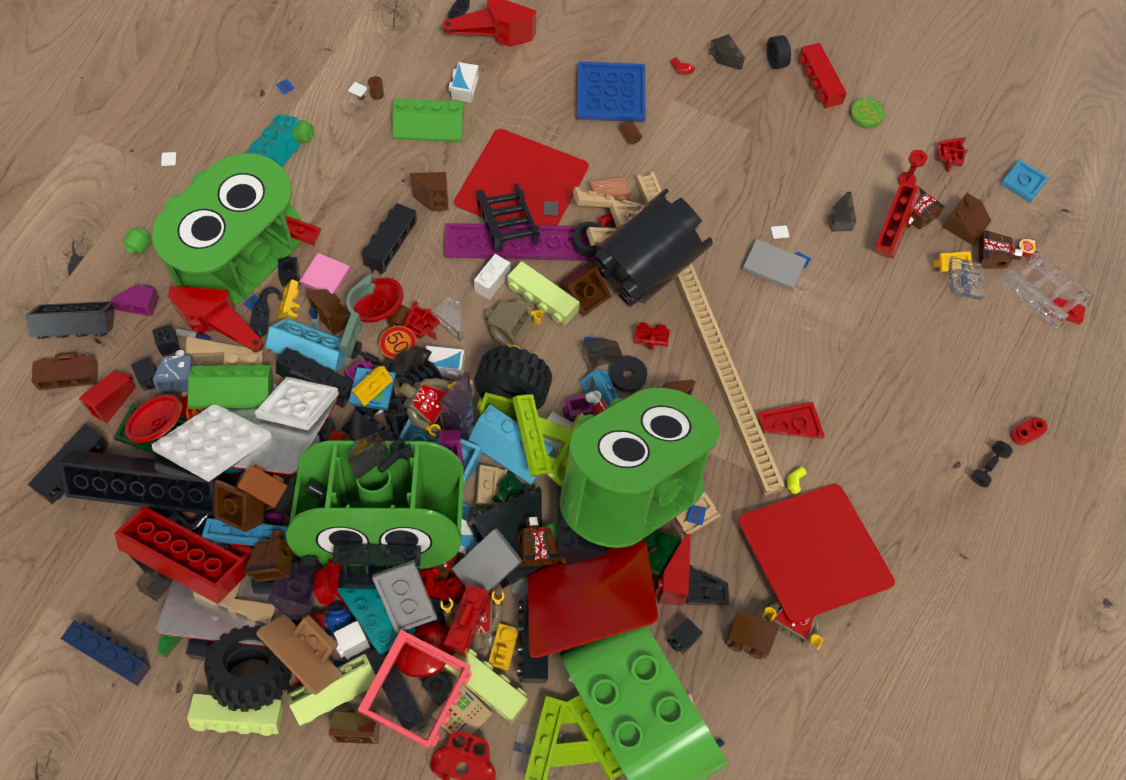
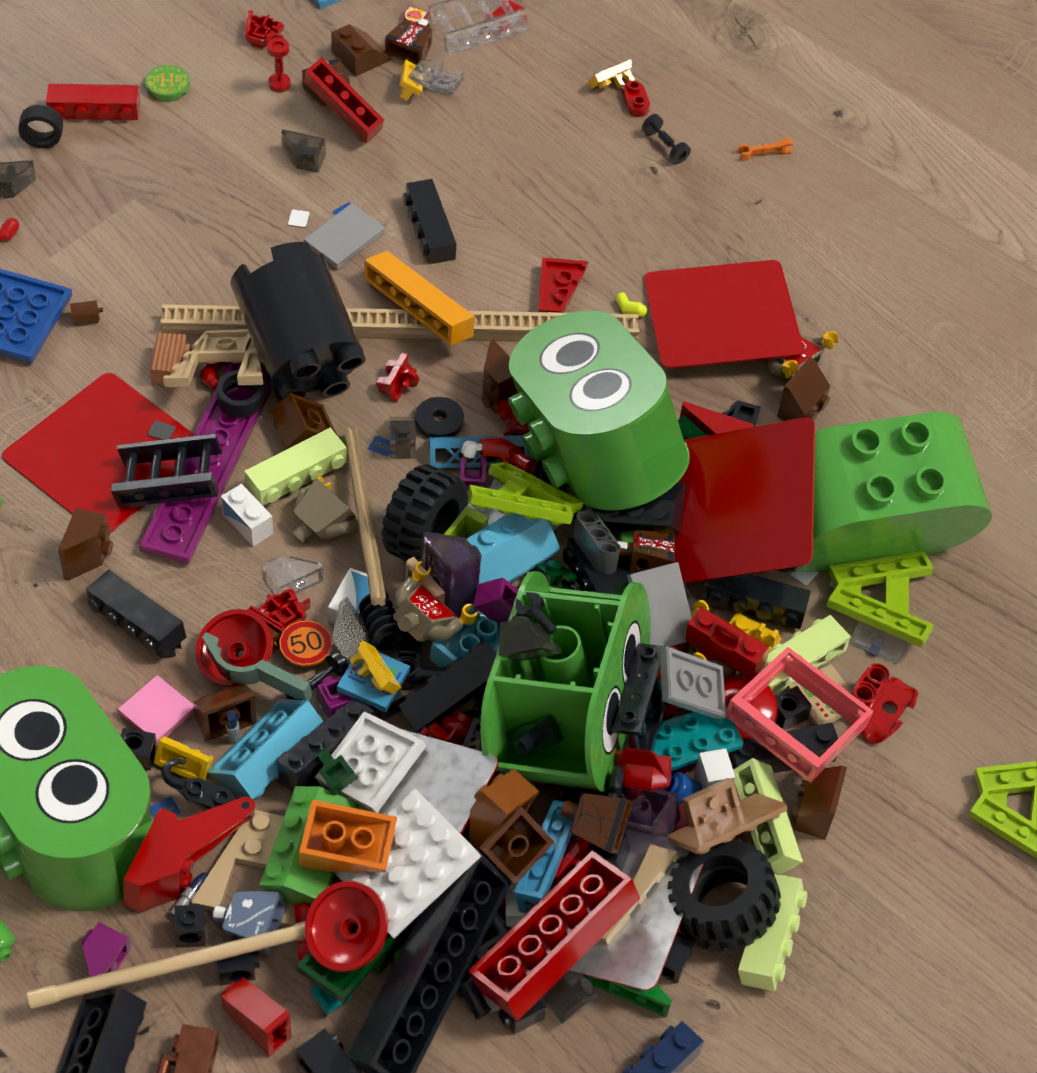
camera: 75 degrees left, 10 degrees down
(97, 279) = (55, 993): none -> tan piece
(219, 398) = (346, 839): none -> orange slope
(282, 383) = (336, 771): none -> dark green plate
(525, 338) = (365, 517): none -> tan axle
(525, 506) = (596, 542): none -> dark grey beam
(724, 326) = (419, 298): none -> light orange brick
(813, 315) = (430, 221): none -> black brick
(1033, 399) = (616, 73): none -> plate
(1036, 562) = (782, 146): none -> orange piece

